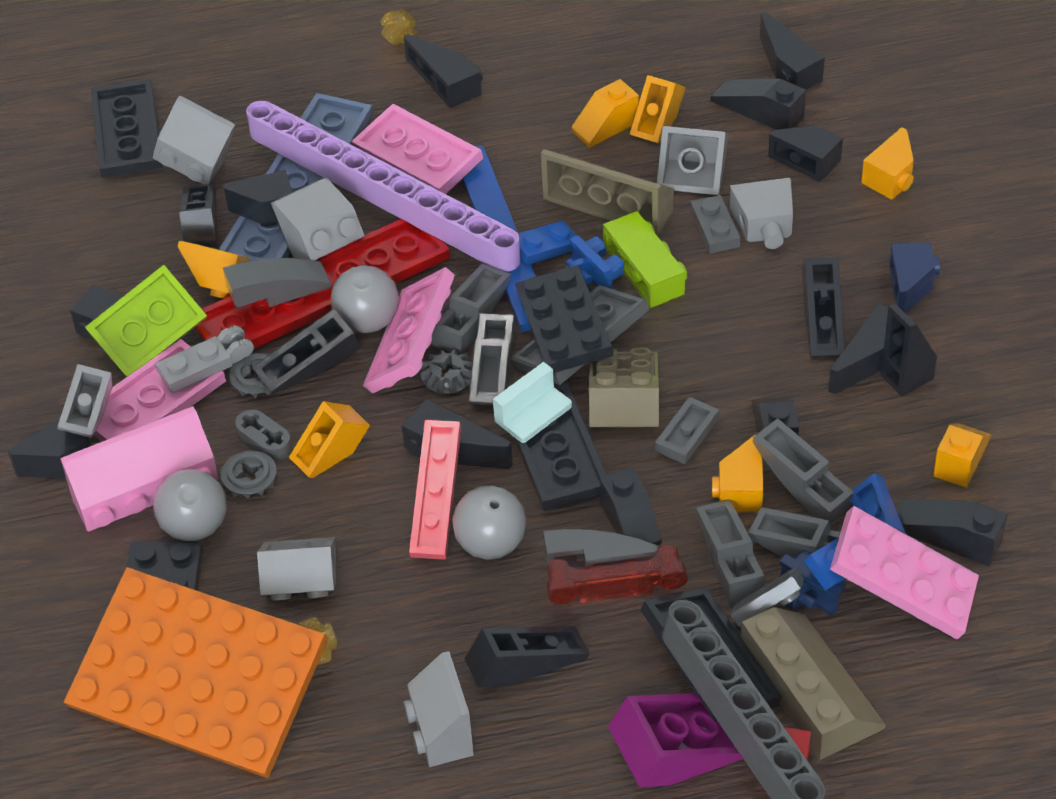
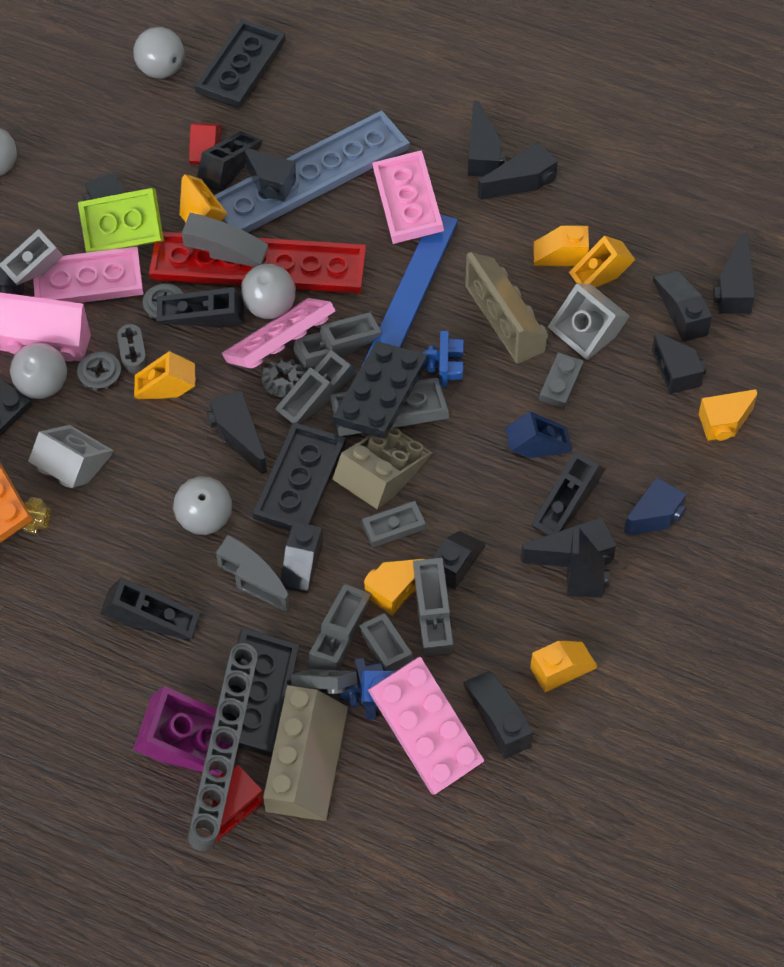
camera: 35 degrees right, 10 degrees up
(33, 157) = (158, 52): none -> light grey piece
(157, 215) = (202, 137): none -> red slope
(194, 141) = (261, 103): light grey slope -> none
(204, 359) = (135, 271): light grey hinge -> none
(317, 220) = (288, 212): light grey slope -> none
(385, 186) = (355, 214): lavender beam -> none
(397, 25) = (482, 89): clear yellow gear -> none
(435, 490) = (191, 458): coral plate -> none
(439, 713) = (60, 616): light grey slope -> none
(506, 76) = (520, 174): none -> black slope
(530, 404) = (303, 438): light aqua panel -> none
(545, 242) = (428, 321): blue plate -> none
(616, 580) = (275, 614): clear red plate -> none
(645, 259) = (484, 377): lime brick -> none
(744, 279) = (537, 436): none -> dark blue slope
(763, 210) = (601, 393): light grey torso -> none
(874, 498) = (459, 668): blue plate -> none

